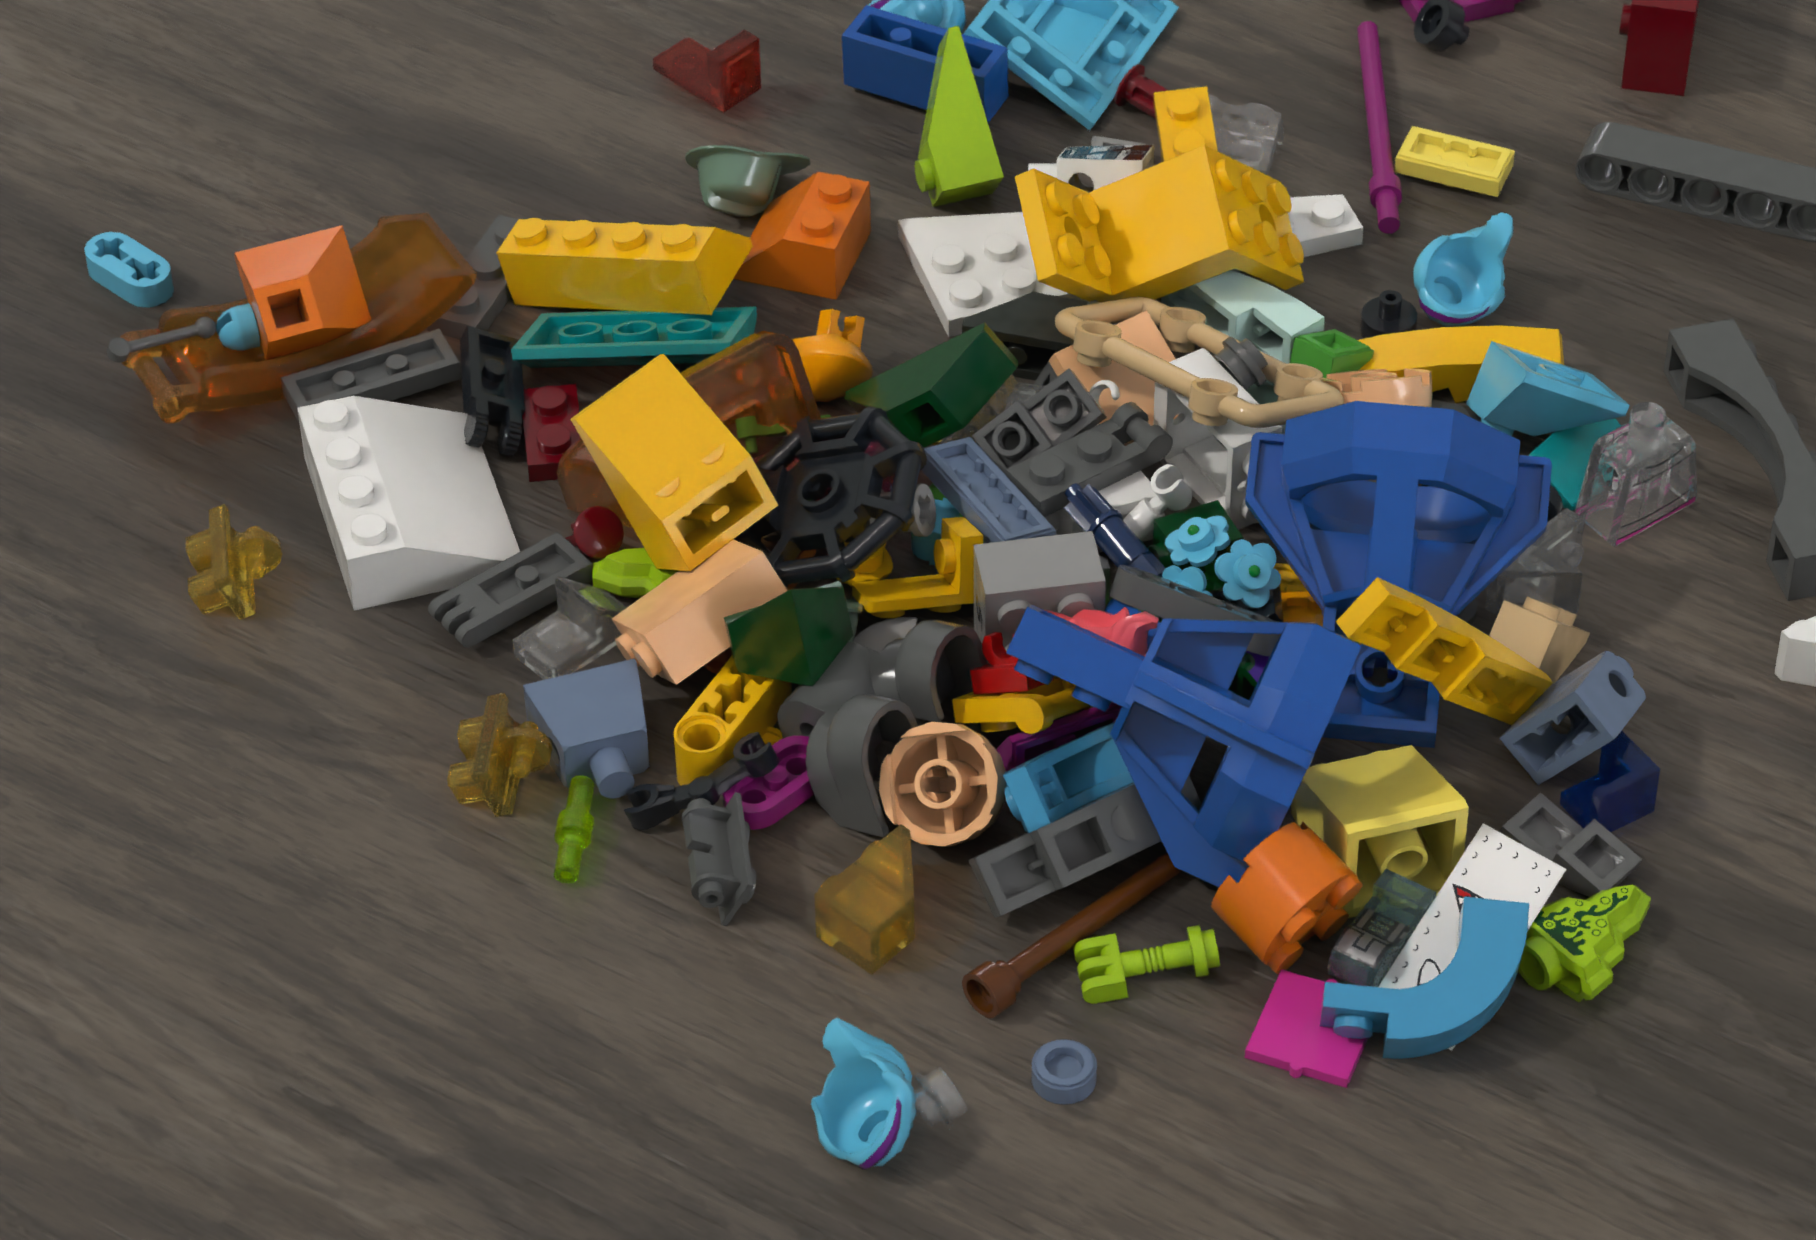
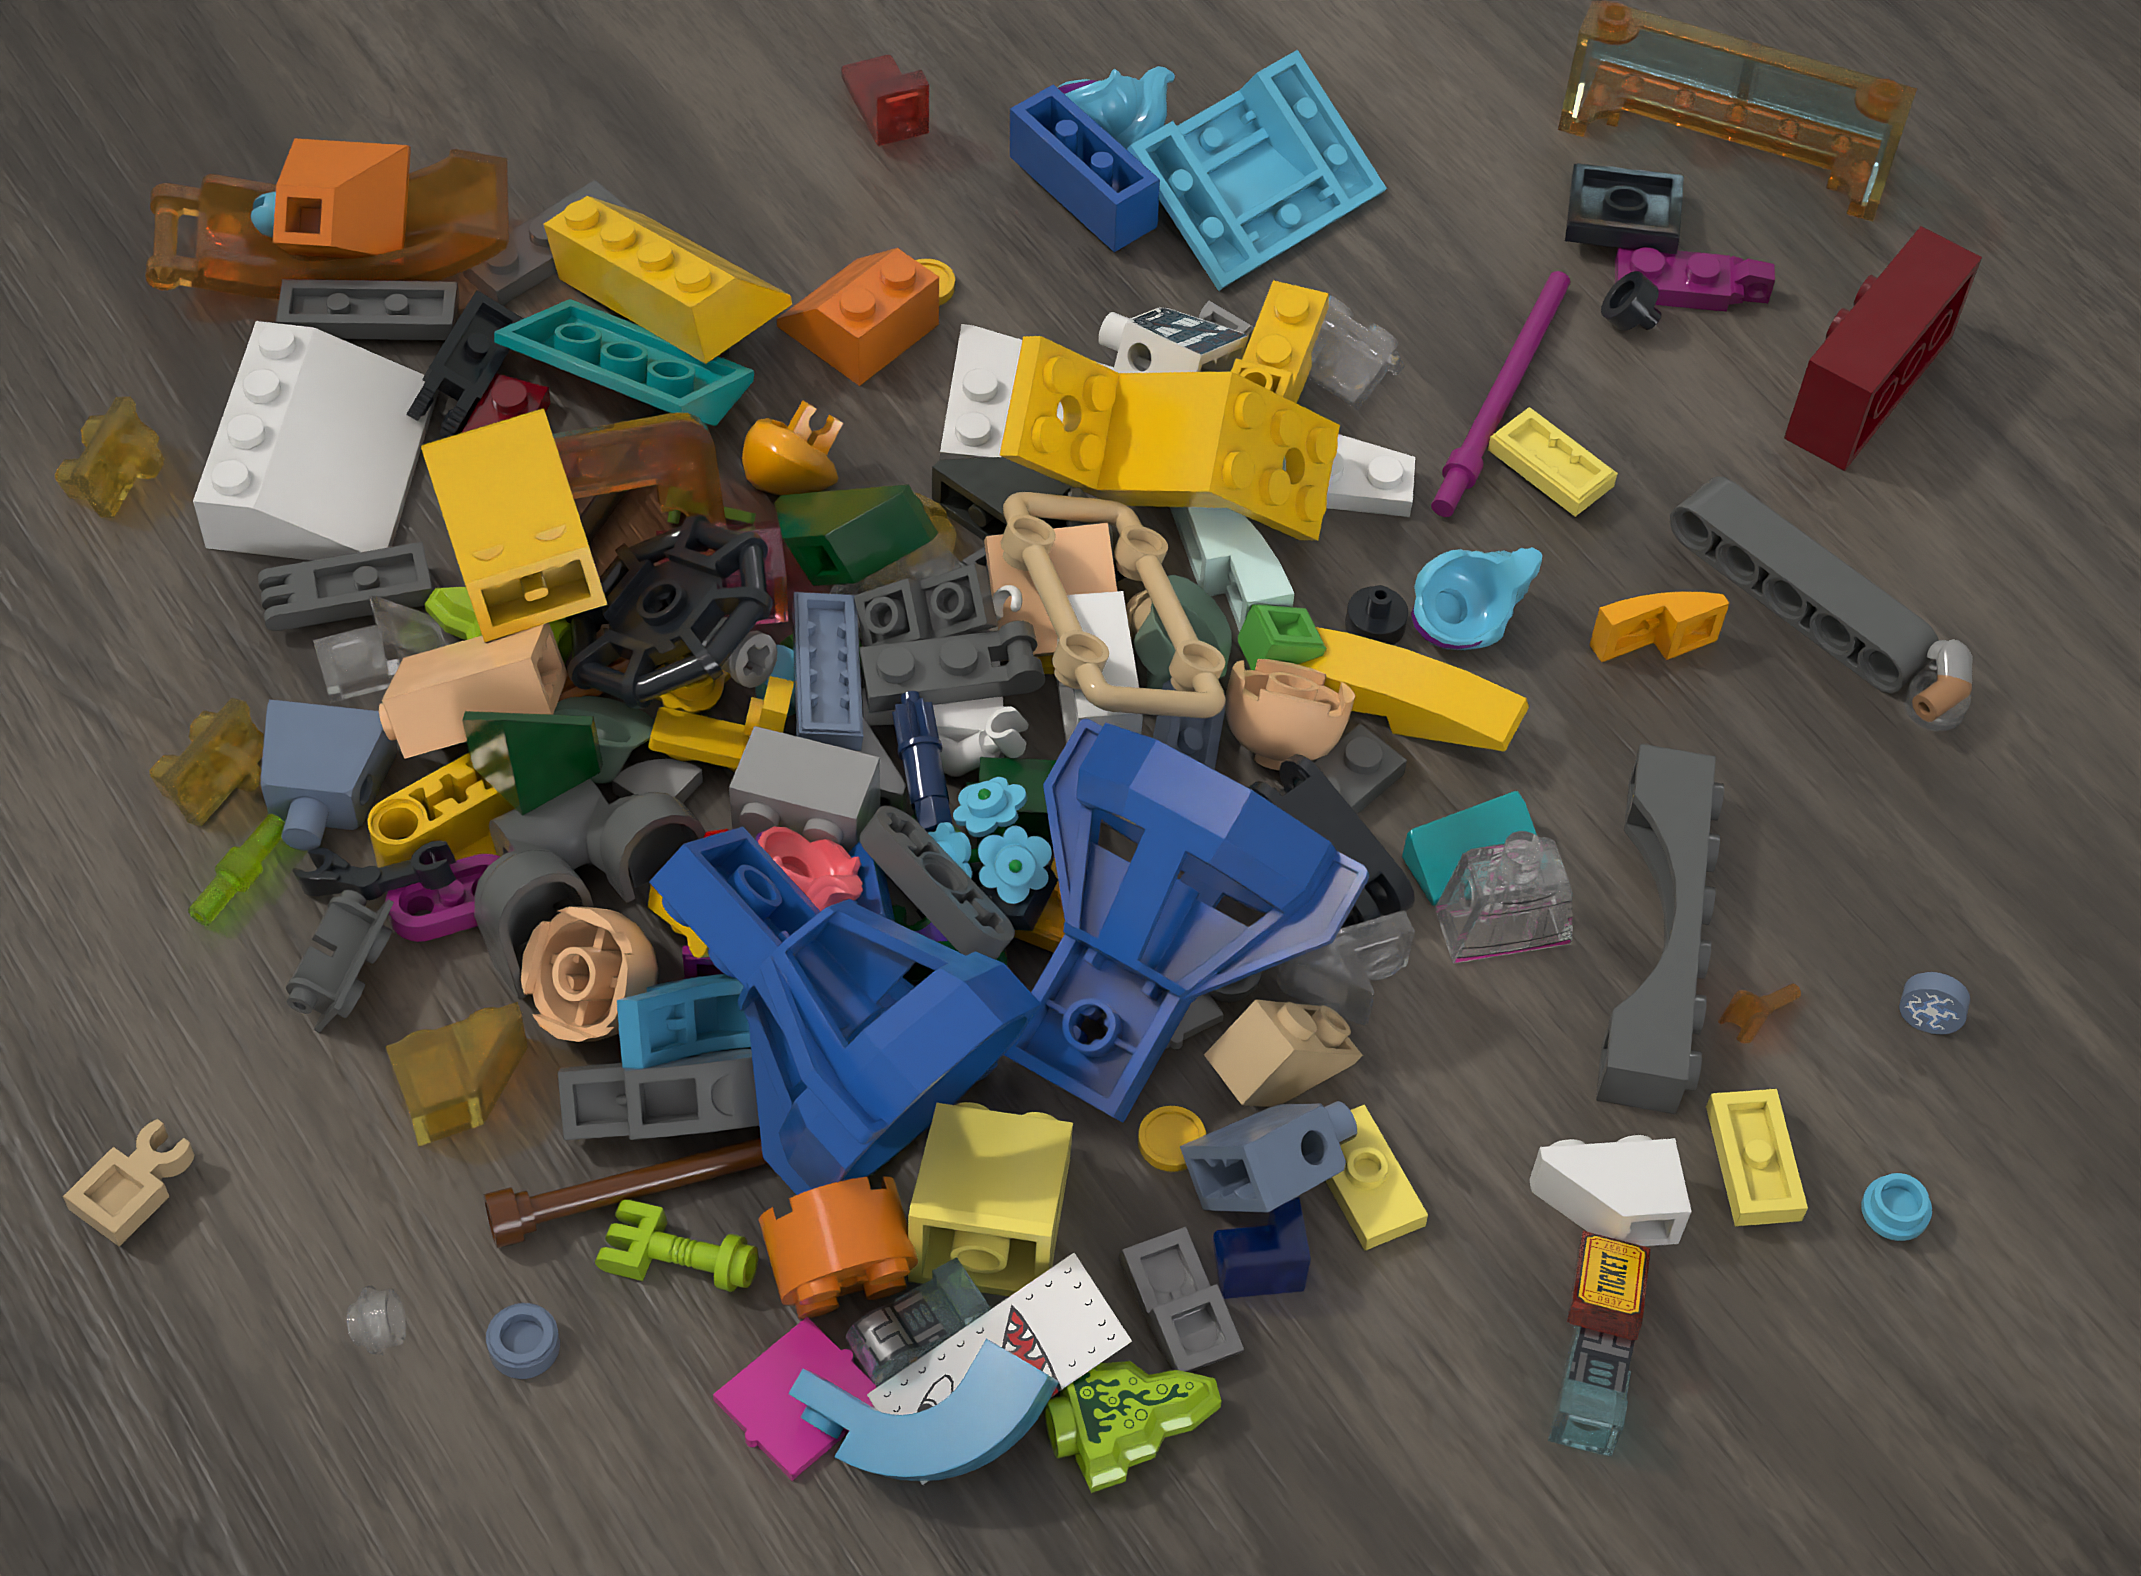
camera: 20 degrees right, 10 degrees up
(119, 348) = (143, 200): dark grey hinge -> none
(136, 262) = (244, 111): medium azure beam -> none
(597, 532) = (441, 562): dark red piece -> none
(658, 1087) = (126, 1190): none -> tan plate
(739, 178) = (830, 230): sand green piece -> none
(865, 1099) = (298, 1294): medium azure hair -> none
(956, 141) = (1056, 254): lime slope -> none
(1138, 90) = (1284, 266): dark red piece -> none
(1242, 362) = (1148, 624): dark grey plate -> none
(1444, 650) = (1154, 1050): yellow slope -> none
(1477, 744) = (1163, 1134): none -> yellow piece
(1538, 394) = (1459, 766): medium azure slope -> none
(1622, 244) = (1669, 620): none -> light orange slope
(1670, 722) = (1374, 1187): none -> light yellow plate

